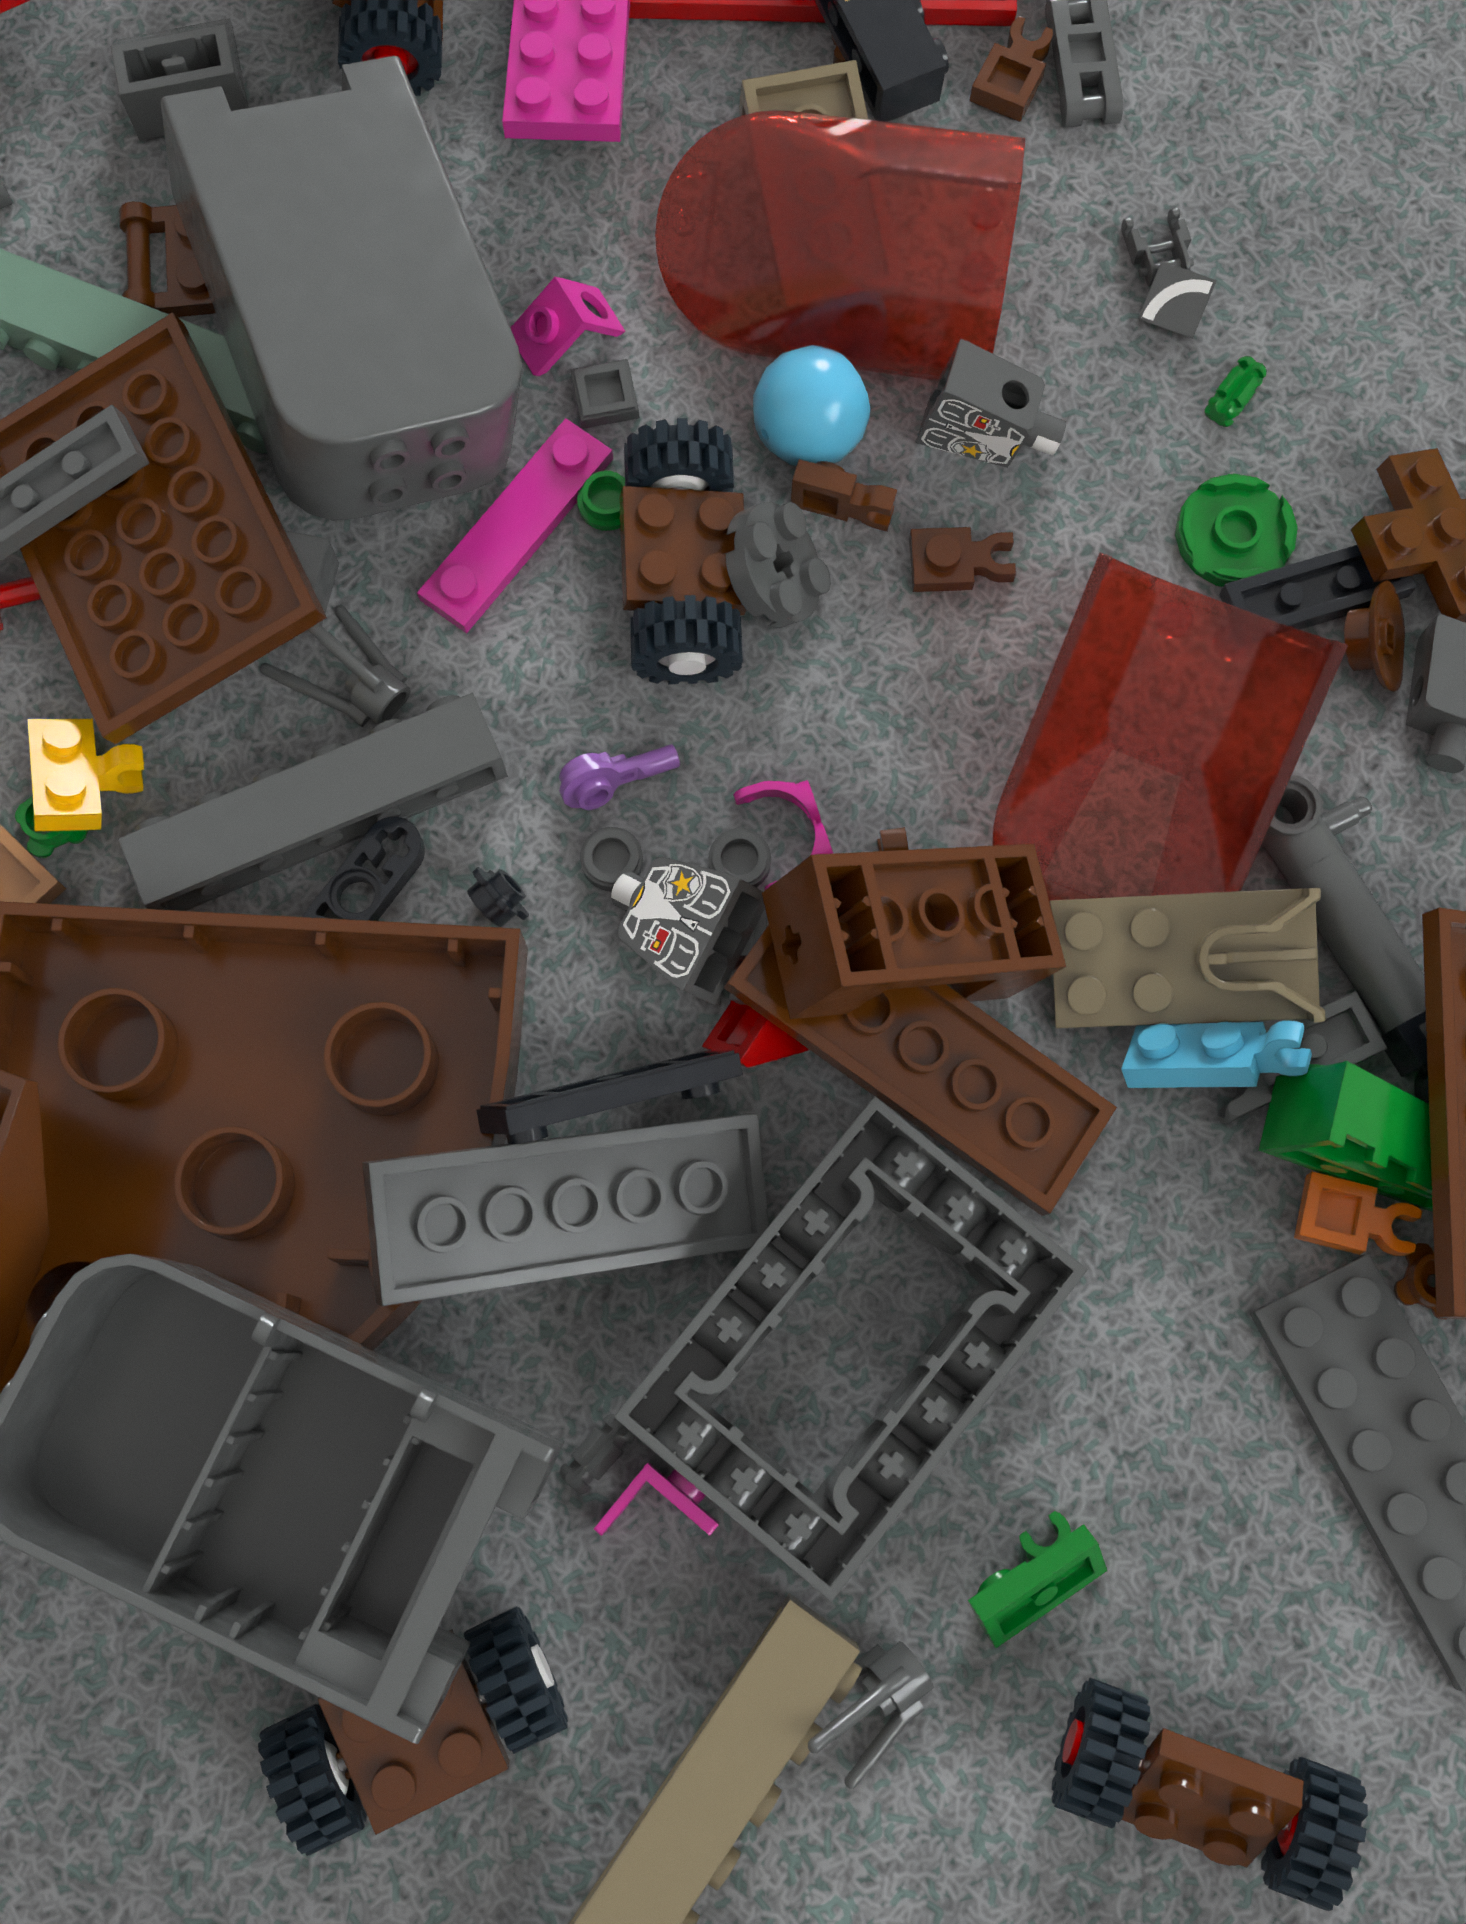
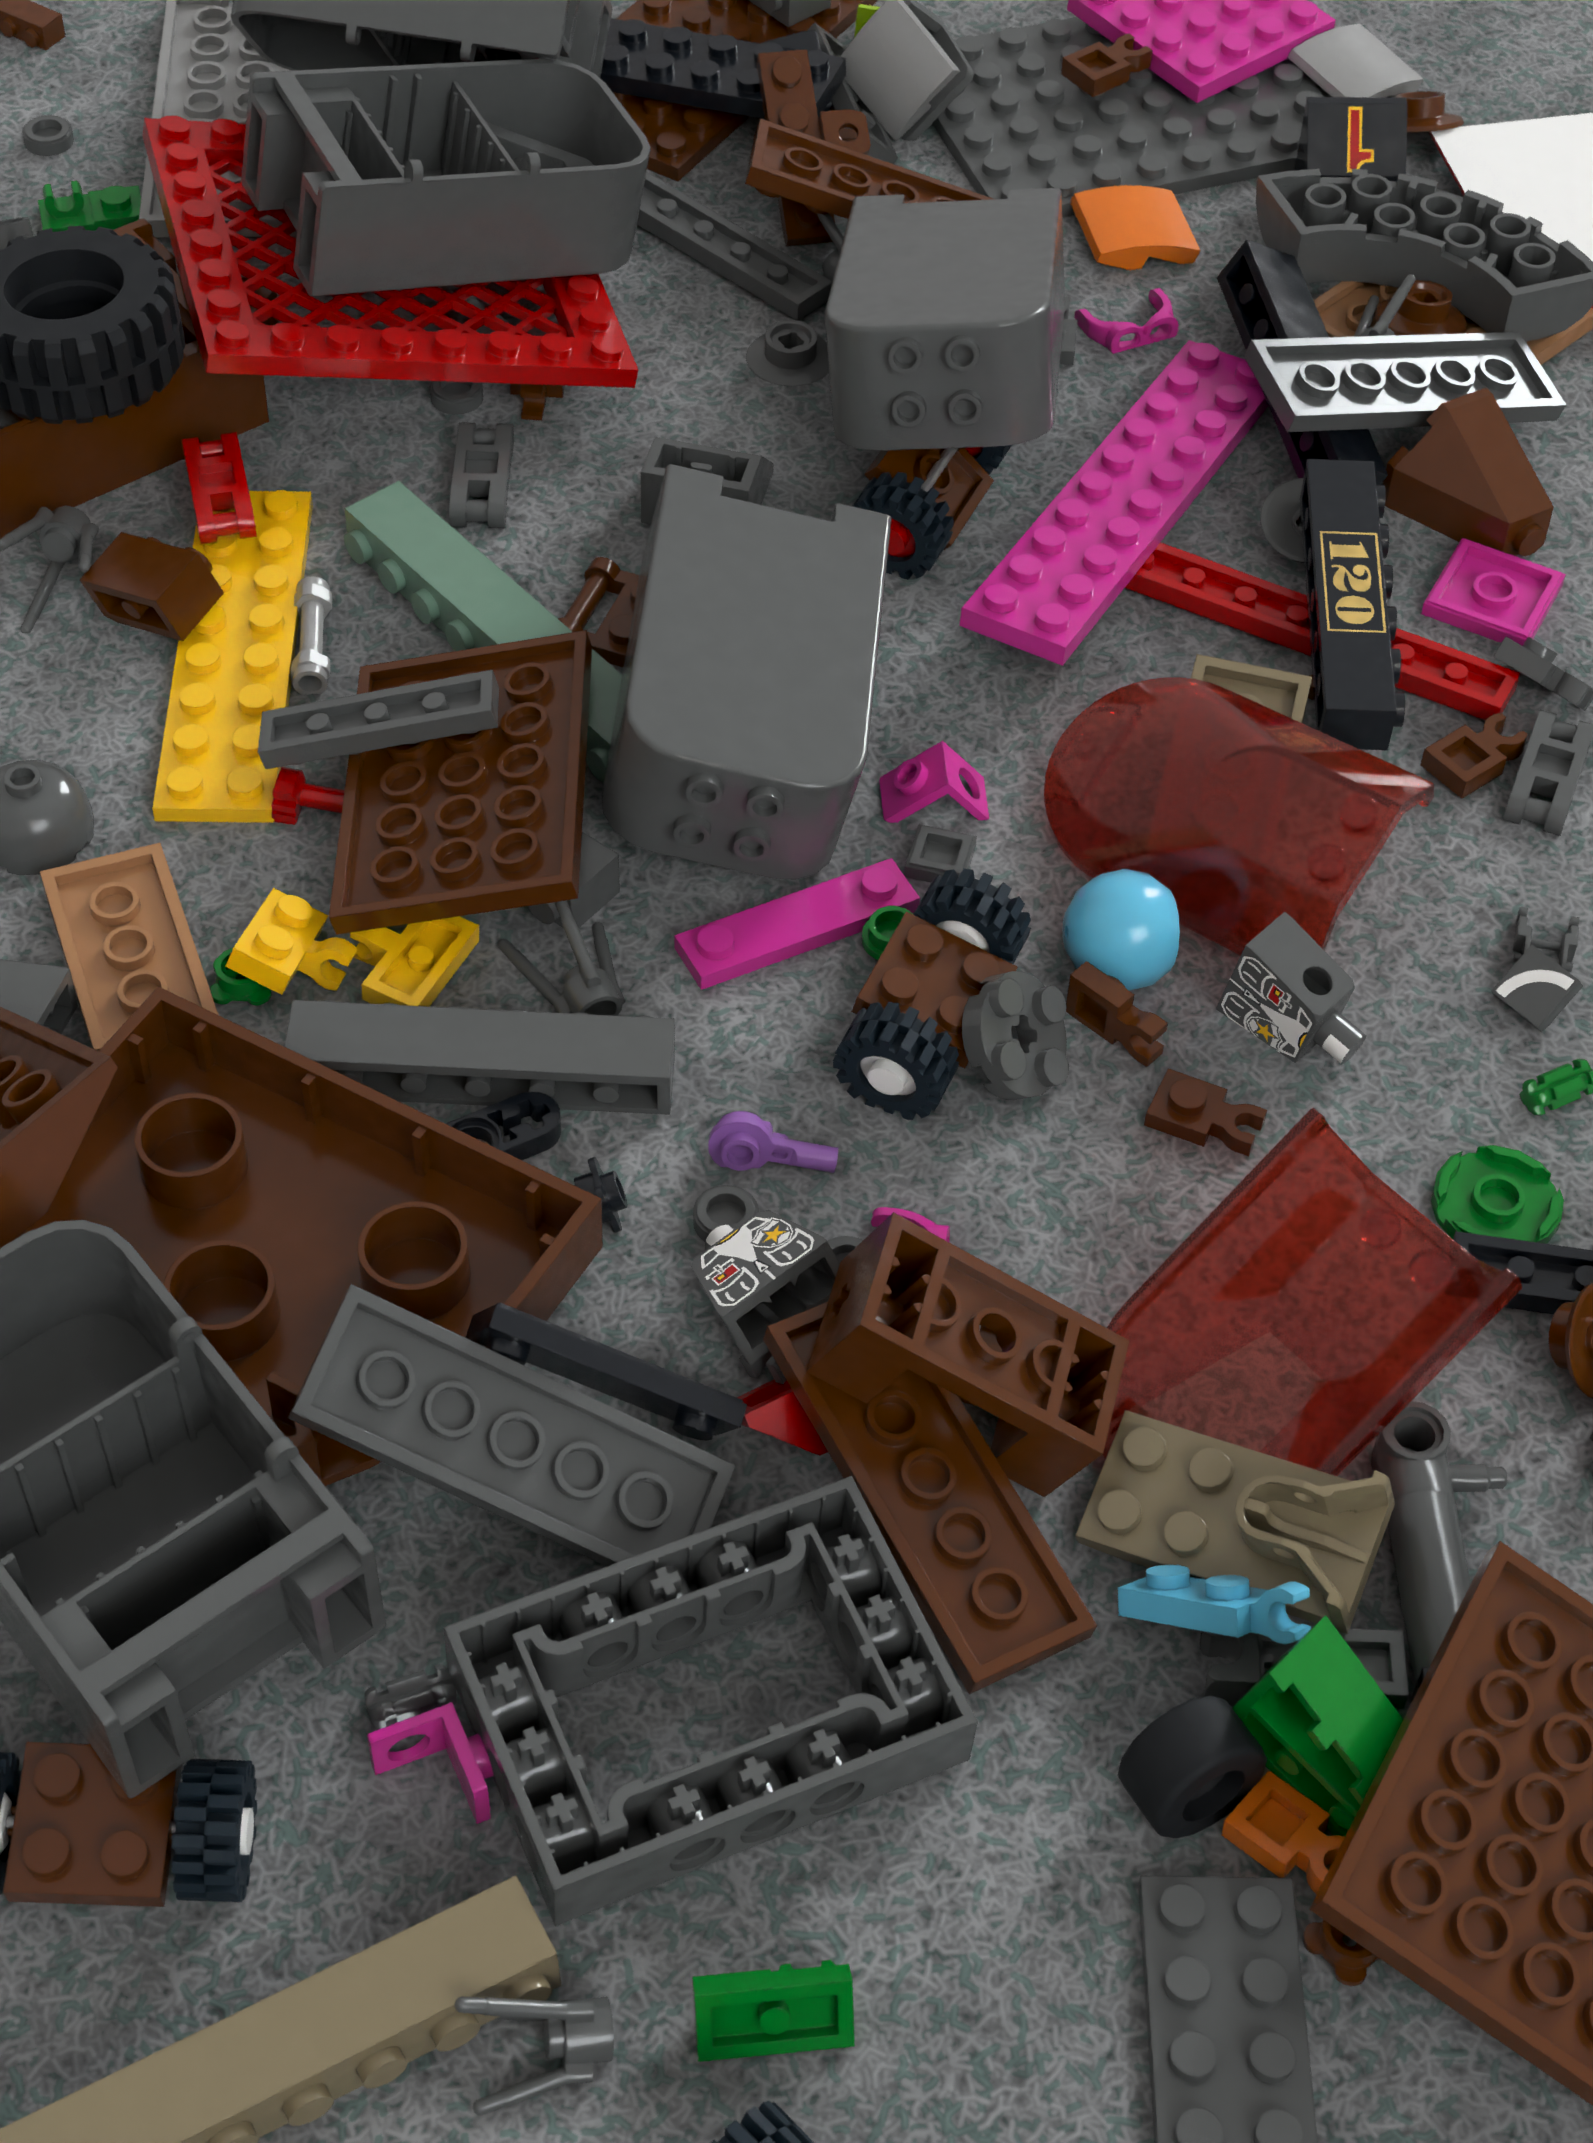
camera: 25 degrees right, 25 degrees down
(201, 739) = (416, 963): none -> yellow plate
(1261, 1207) = (1191, 1766): none -> black tyre

